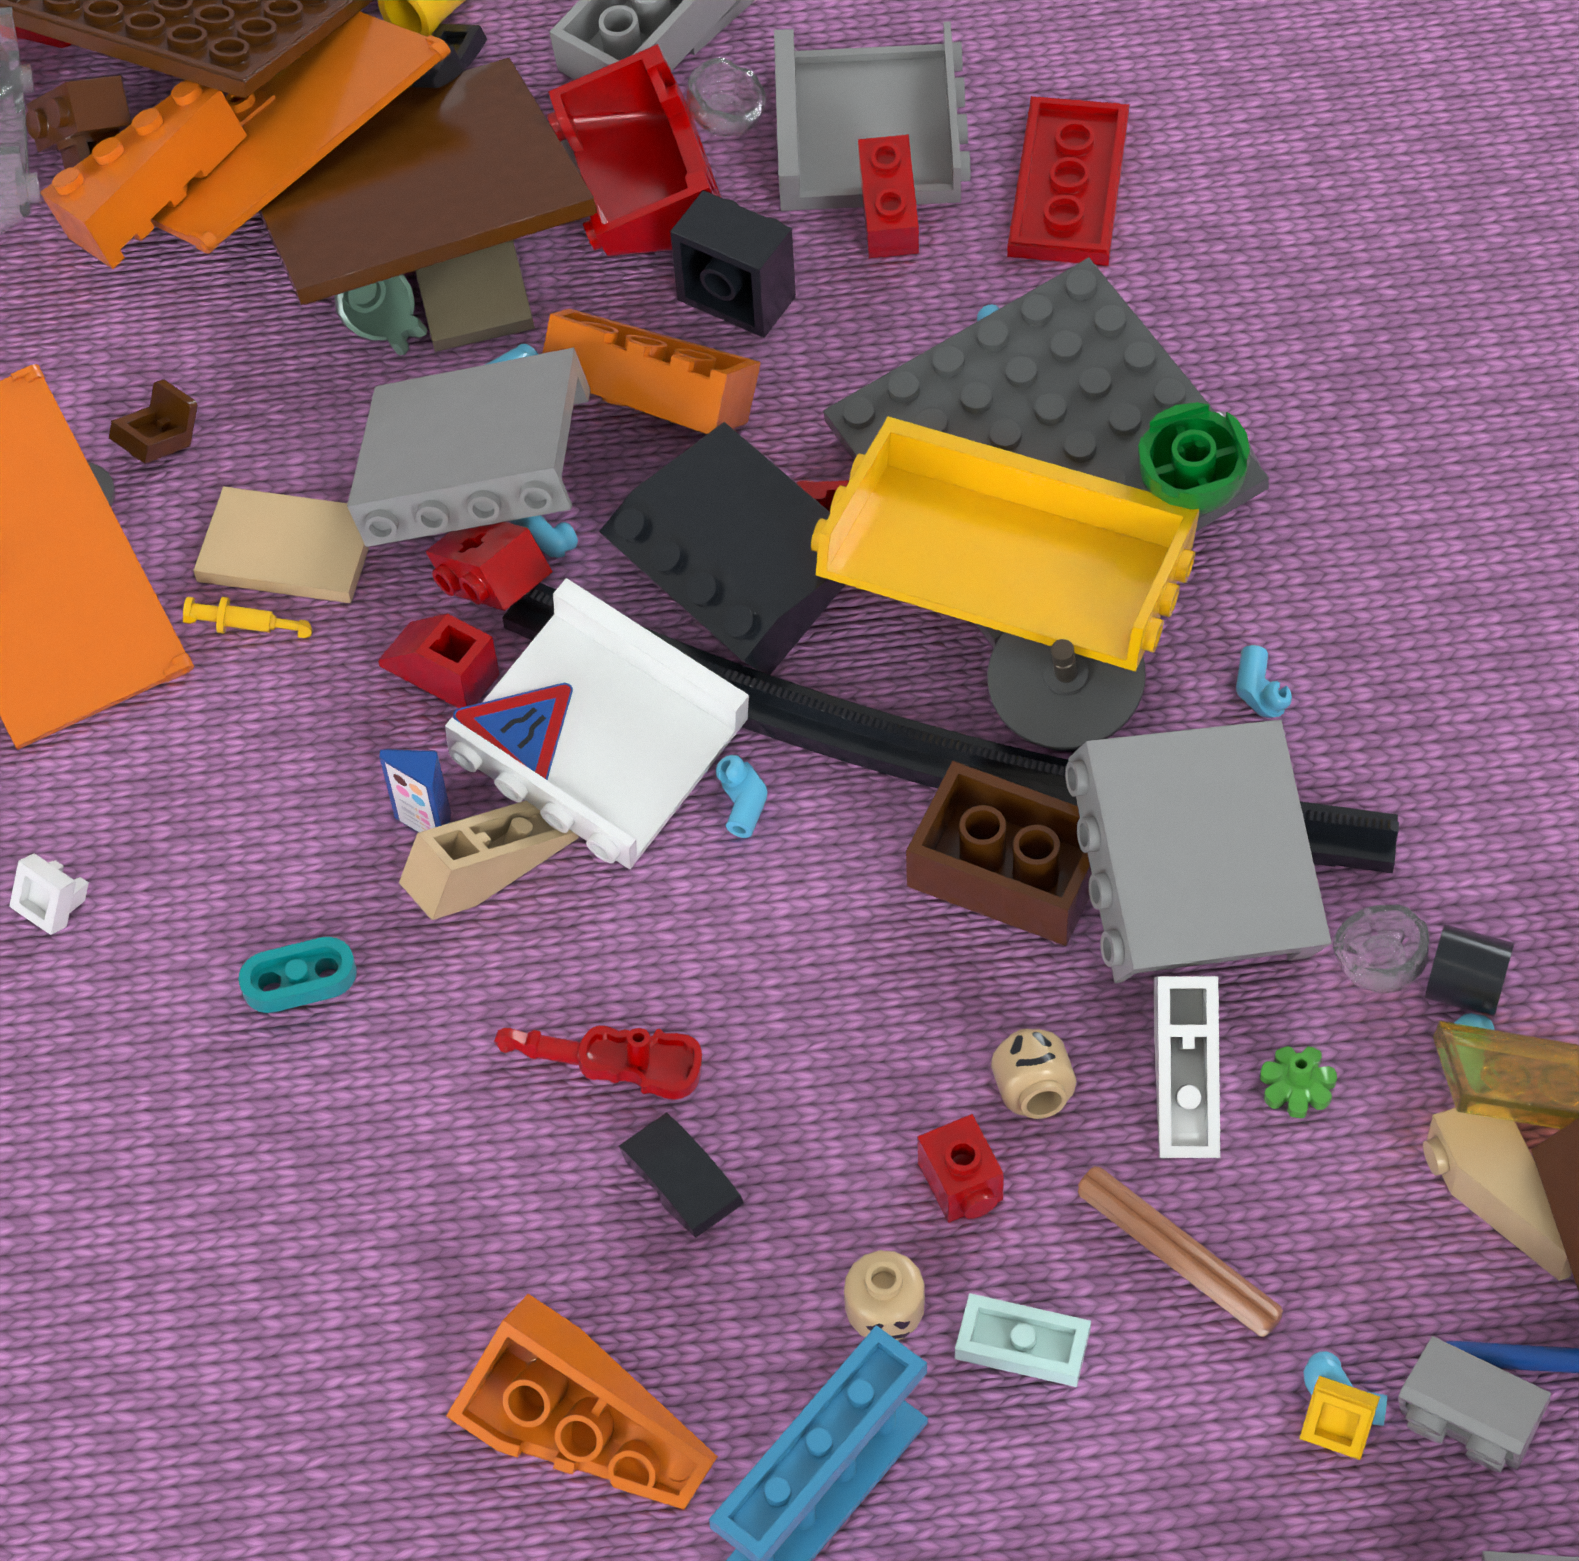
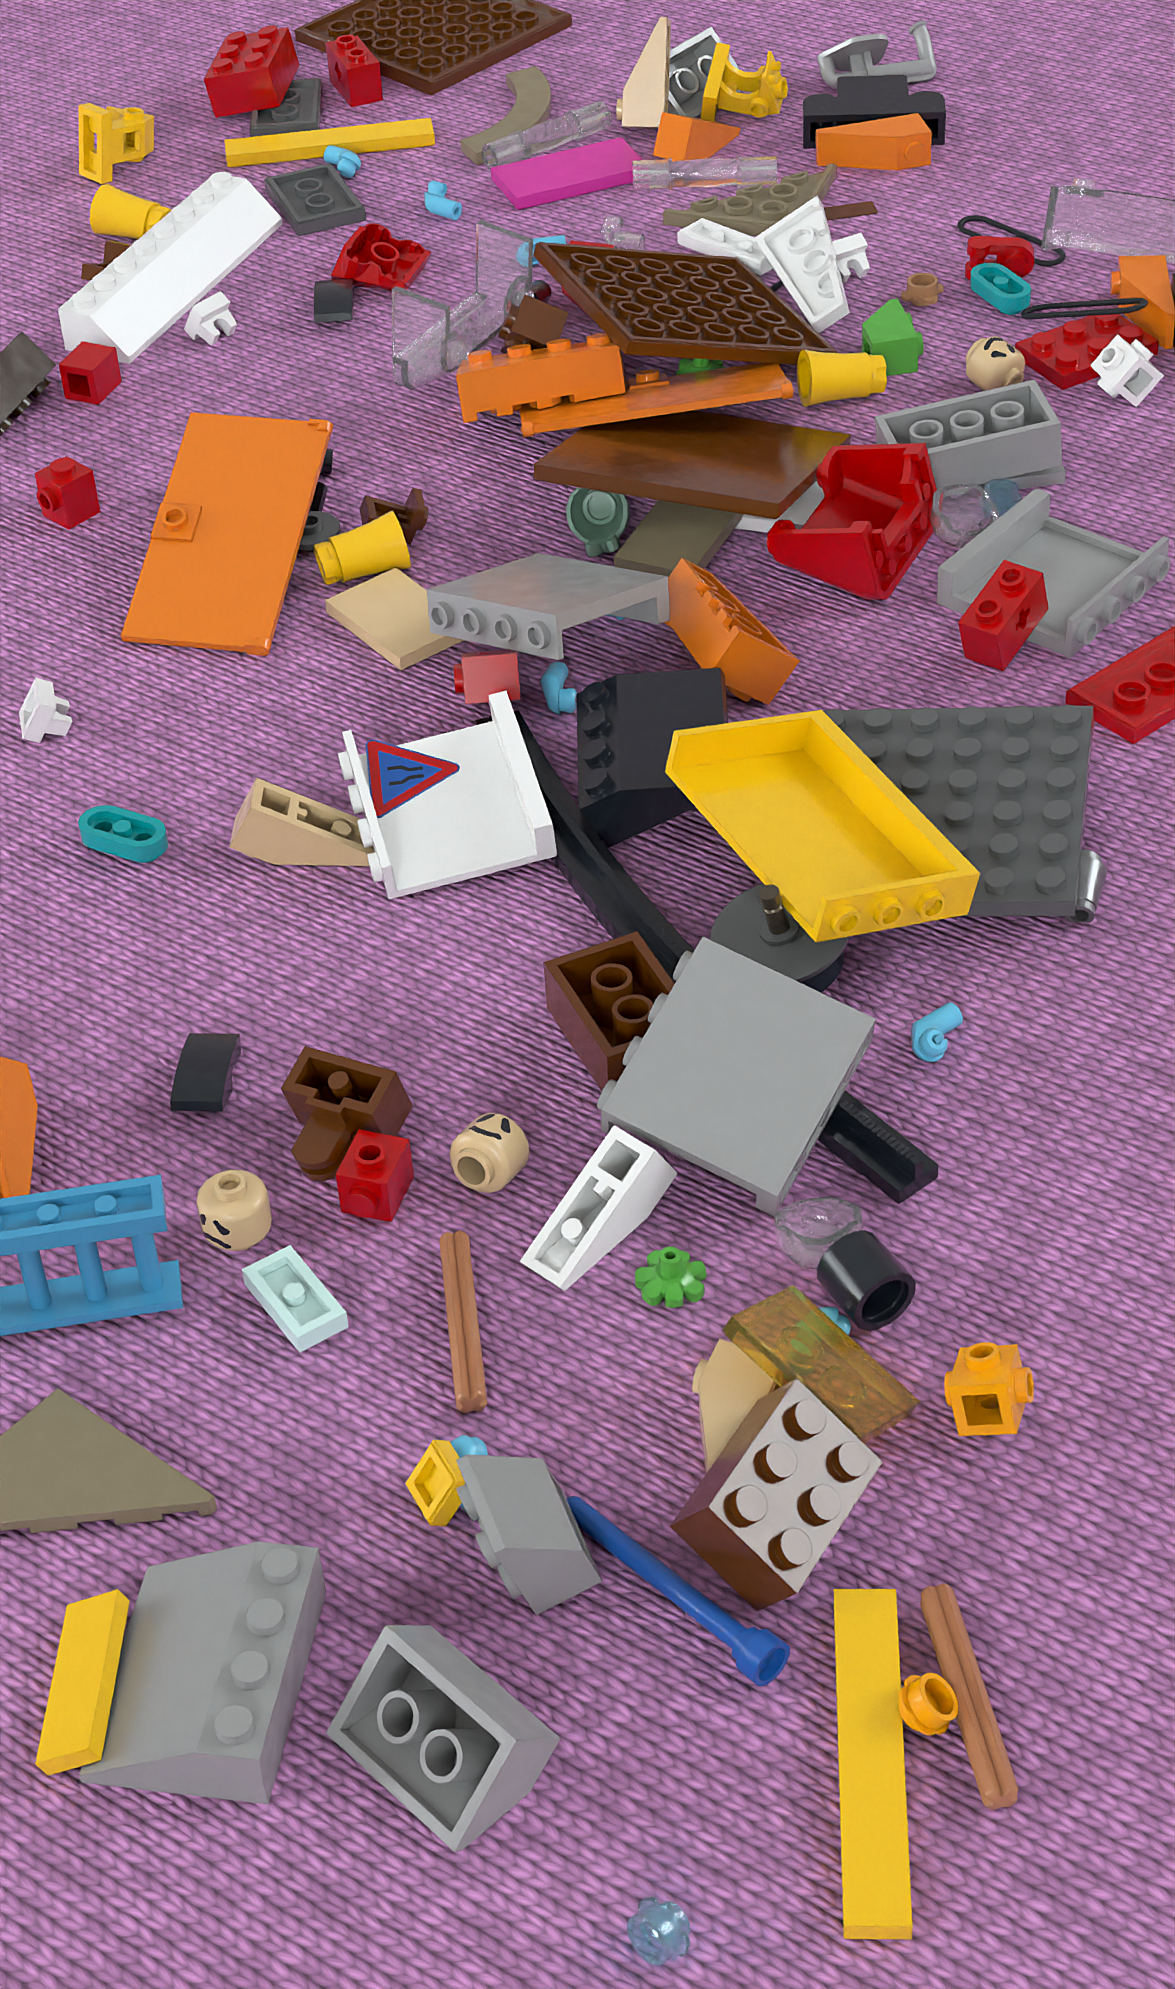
camera: 40 degrees right, 15 degrees down
(176, 487) = (363, 551): none -> yellow plant
(241, 618) = (316, 633): yellow piece -> none
(416, 788) = (298, 760): slope -> none
(444, 659) = (405, 713): red slope -> none
(465, 45) = (802, 414): black slope -> none
(657, 1063) = (265, 1007): red piece -> none
(728, 45) = (1003, 493): none -> clear light blue plate
(733, 263) = (848, 599): black brick -> none
(745, 791) = (508, 898): medium azure arm -> none
(864, 1122) = (335, 1101): none -> reddish brown brick
(1194, 457) = (1004, 839): green cylinder -> none

